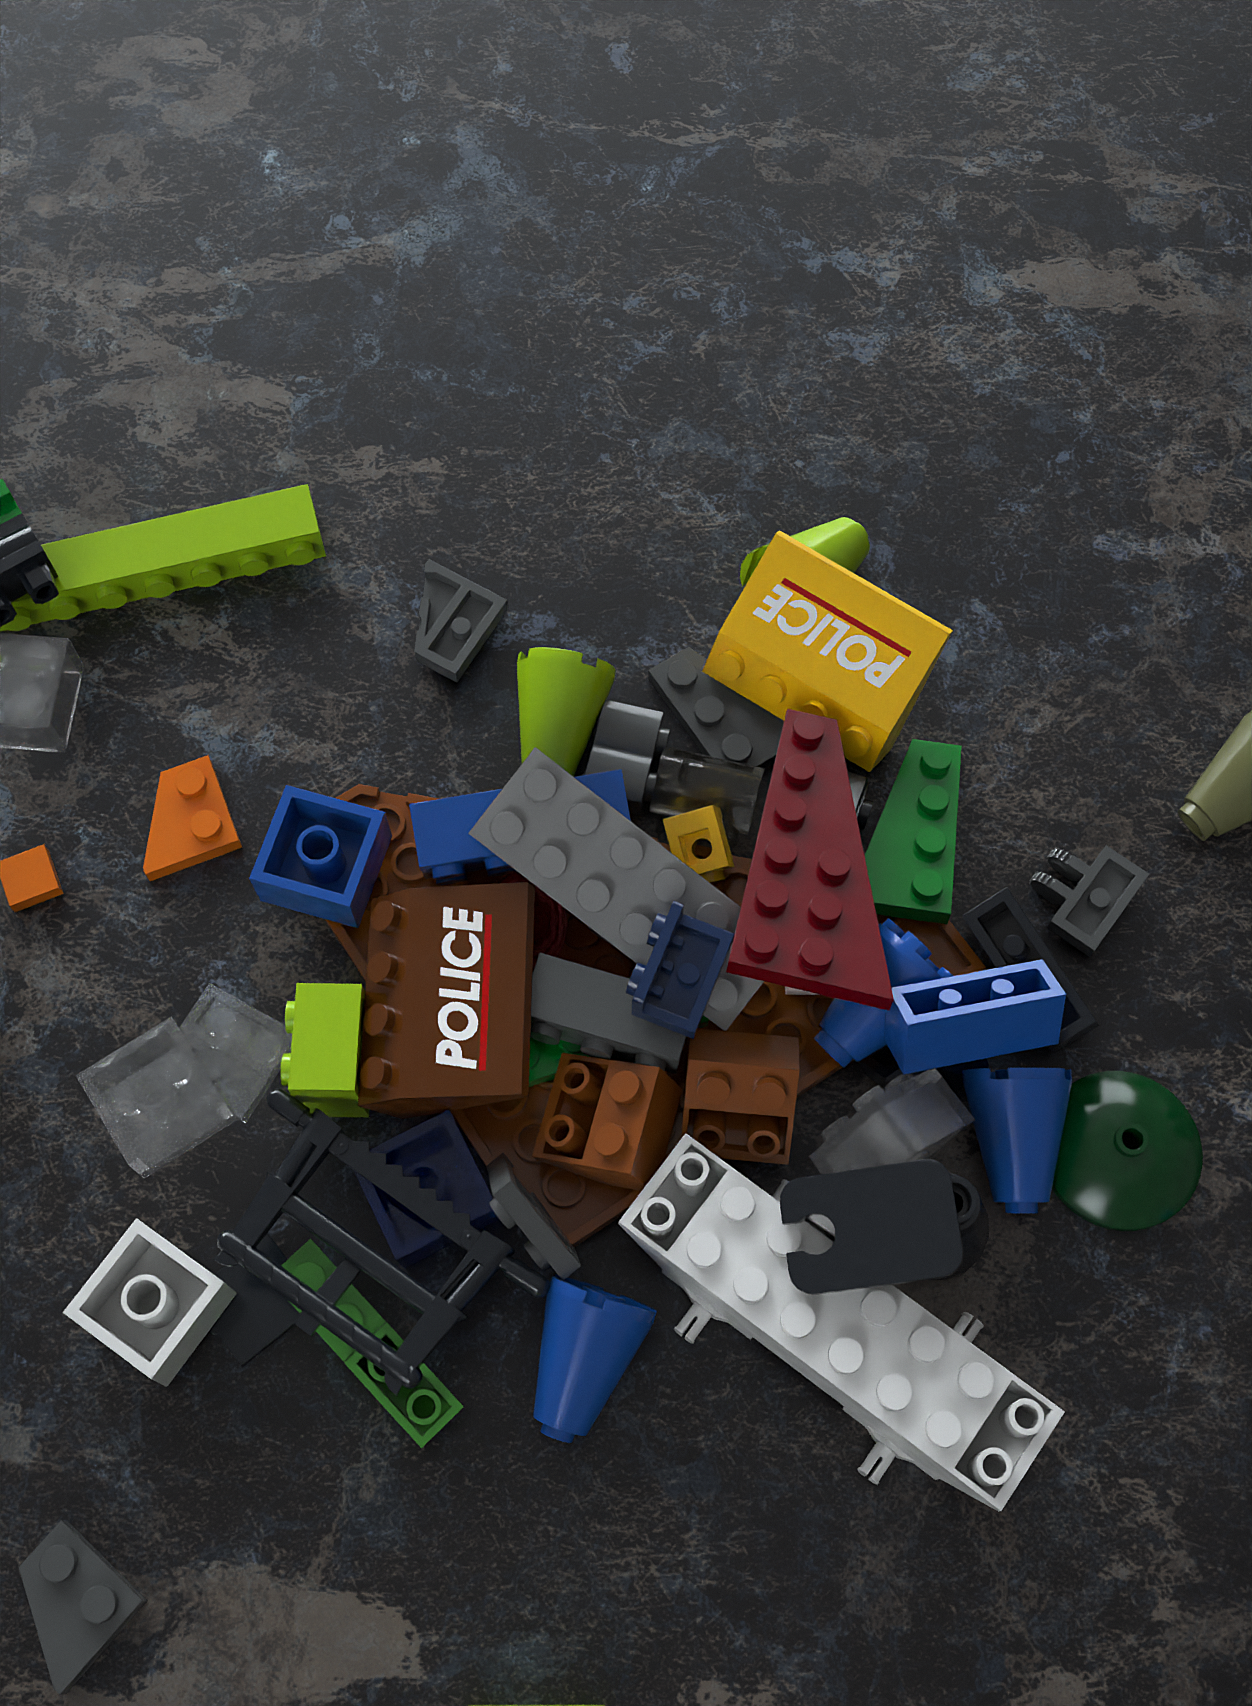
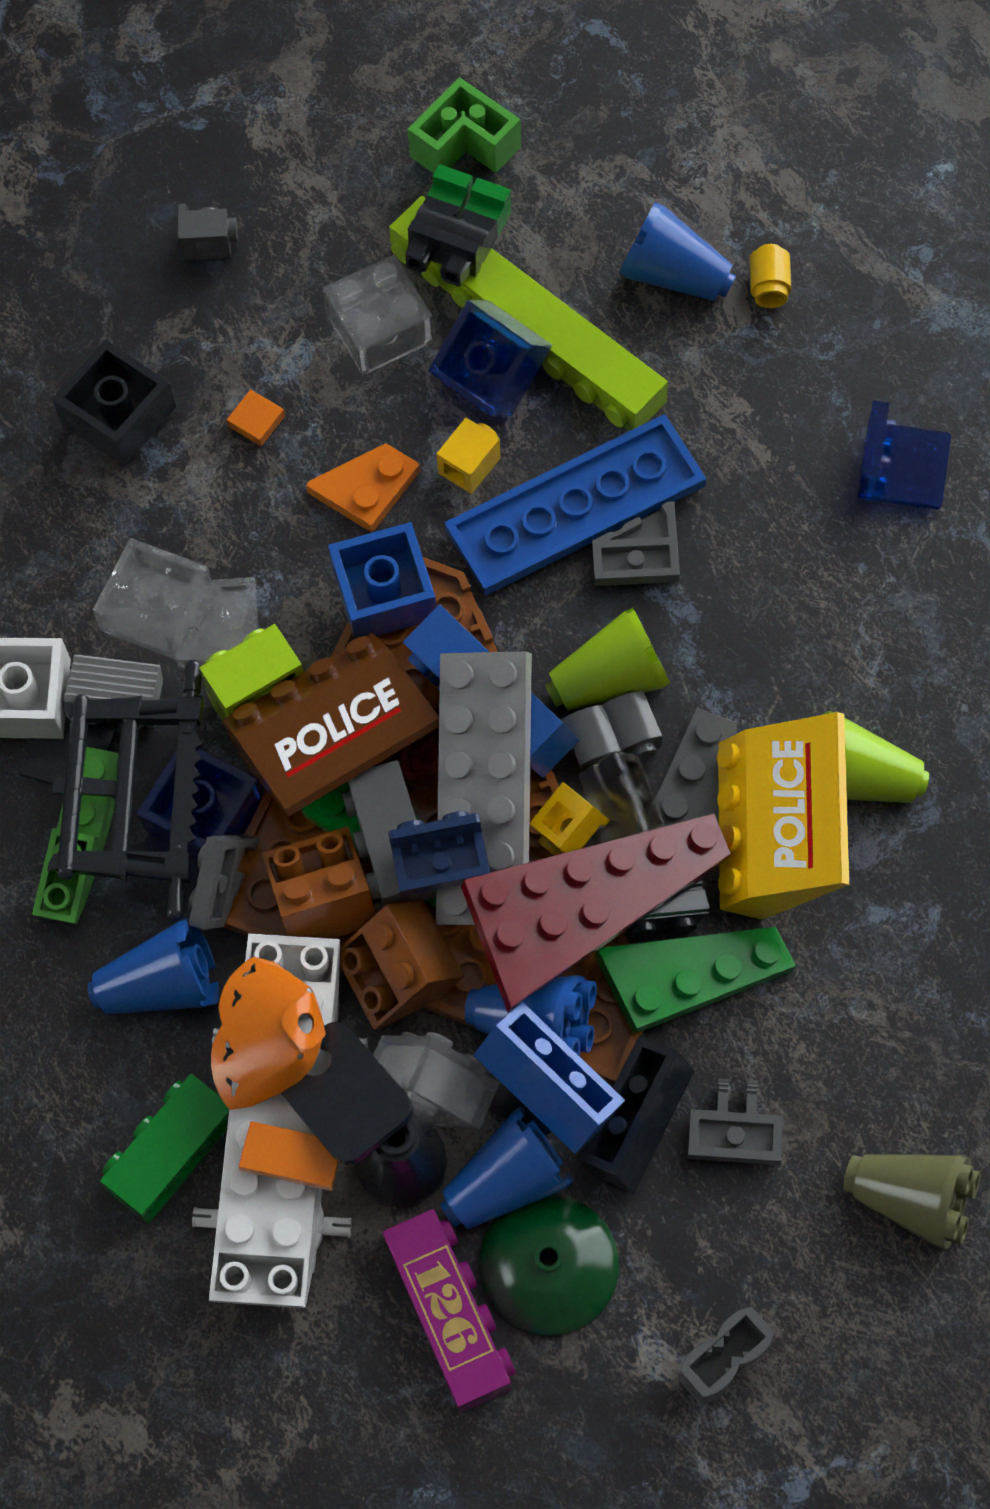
camera: 60 degrees right, 0 degrees up
(155, 617) = (490, 358): none -> clear blue brick
(181, 403) = (676, 258): none -> blue cone
(218, 1199) = (113, 679): none -> light grey brick
(236, 704) = (469, 455): none -> yellow brick
(264, 344) = (770, 275): none -> yellow brick
(361, 649) = (574, 504): none -> blue plate
(531, 359) = (903, 462): none -> clear blue bracket
(751, 1266) = (264, 1034): none -> orange piece
(779, 1458) = (167, 1148): none -> green brick
(900, 1327) = (288, 1156): none -> orange tile
(1123, 1272) = (448, 1311): none -> magenta brick

